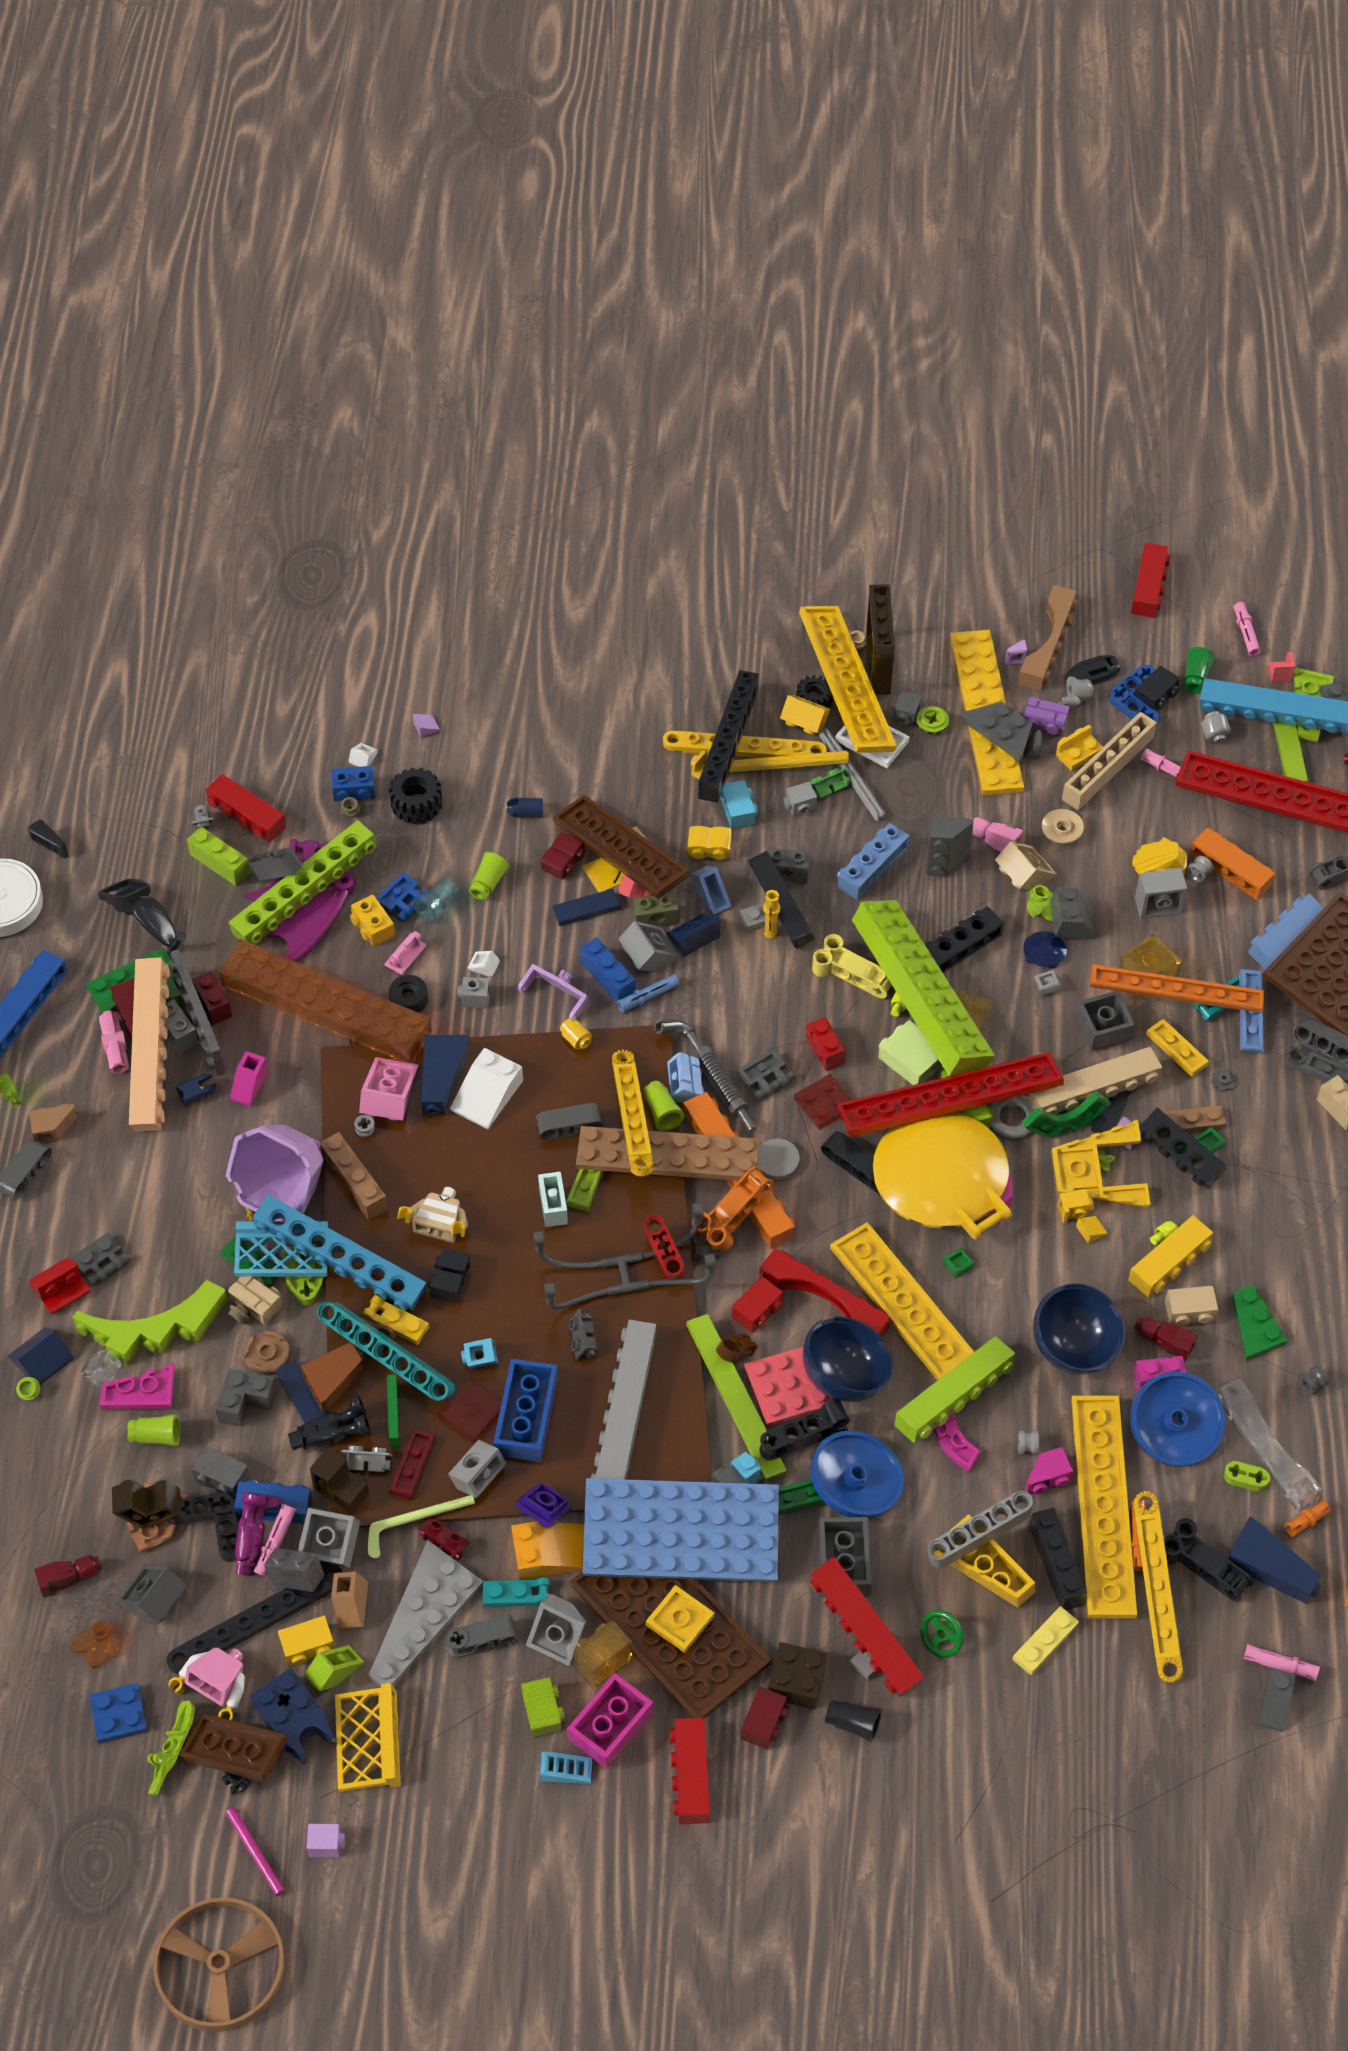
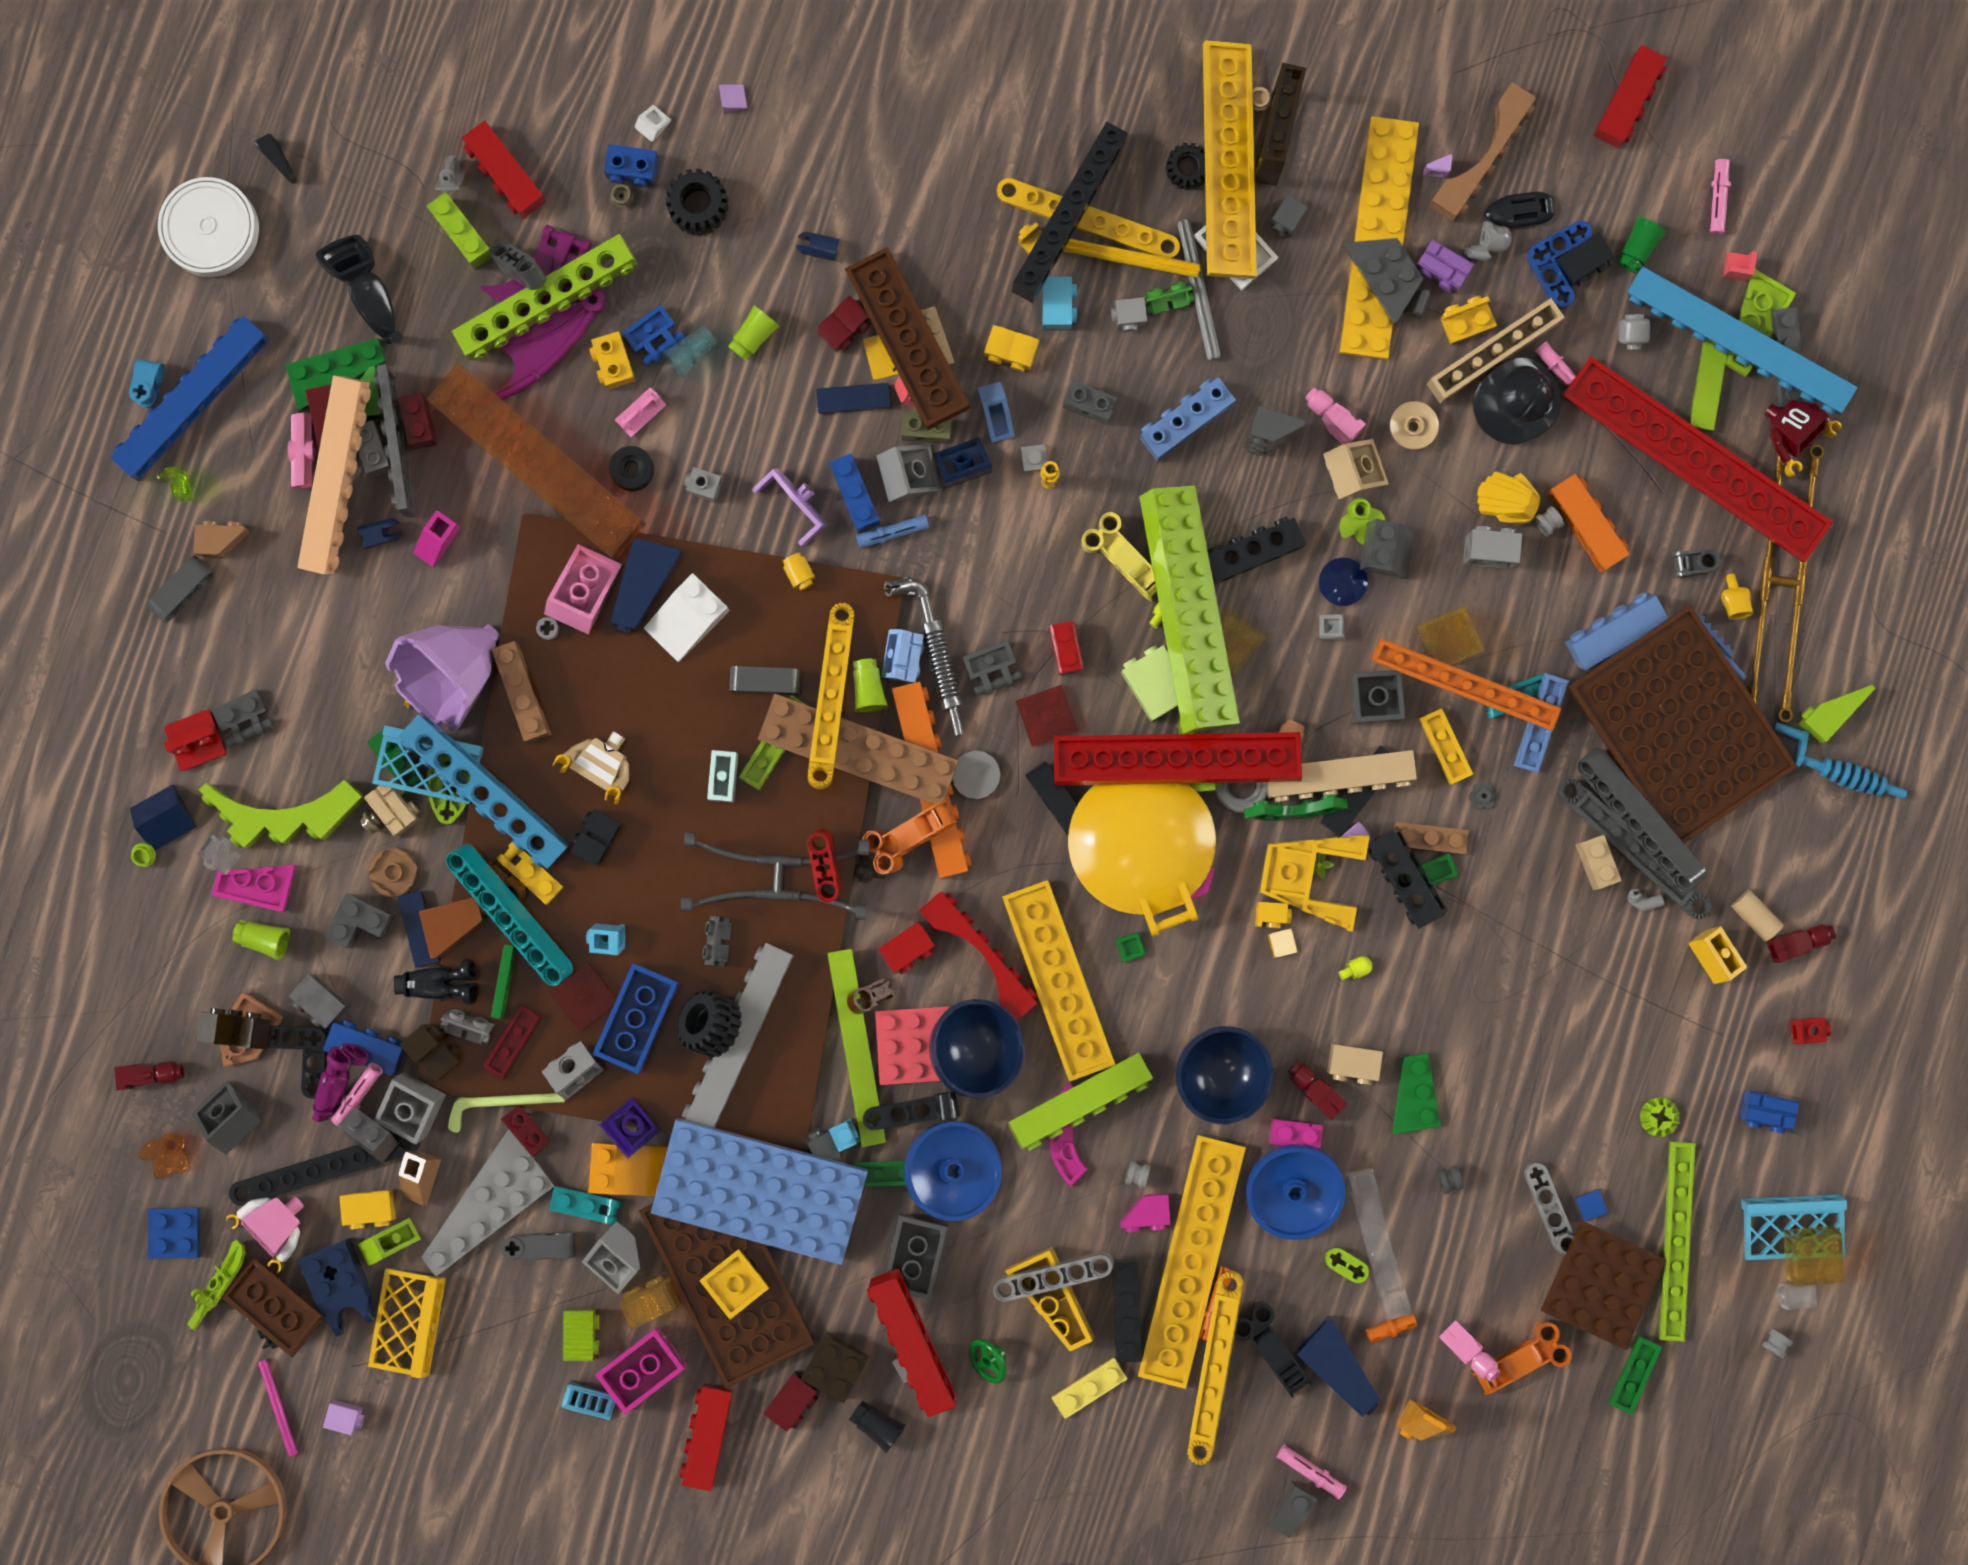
camera: 15 degrees right, 30 degrees up
(484, 963) = (724, 444): white slope -> none
(595, 1393) = (709, 1023): none -> black tyre
(789, 913) = (1067, 452): black beam -> none
(804, 714) = (1167, 196): yellow brick -> none
(929, 713) = (1311, 225): lime gear -> none
(1139, 792) = (1517, 401): none -> black piece
(1171, 1256) = (1353, 1000): yellow brick -> none

